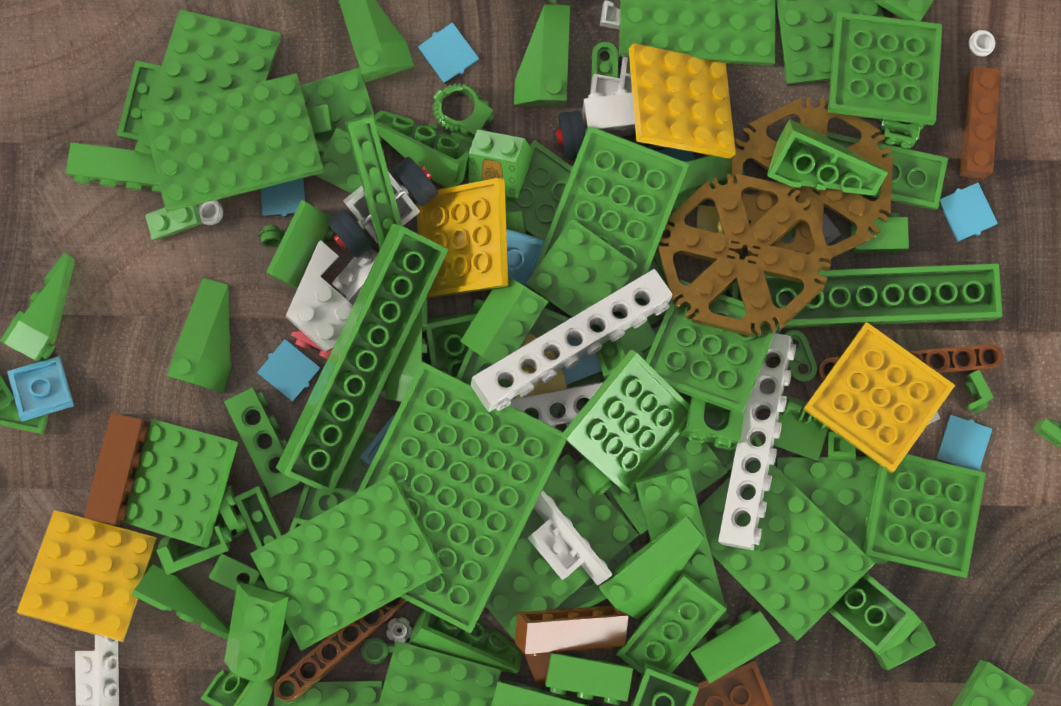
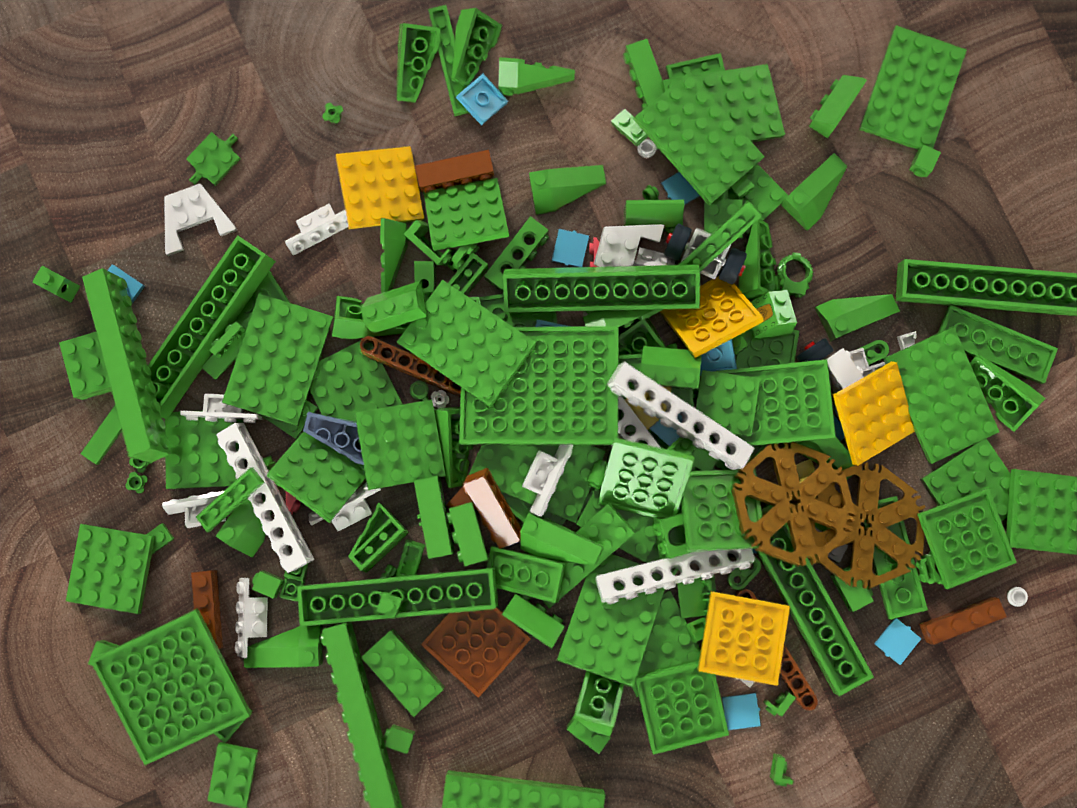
camera: 65 degrees right, 0 degrees up
(448, 53) = (827, 248): medium azure piece -> none
(816, 161) = (880, 523): bright green wedge -> none

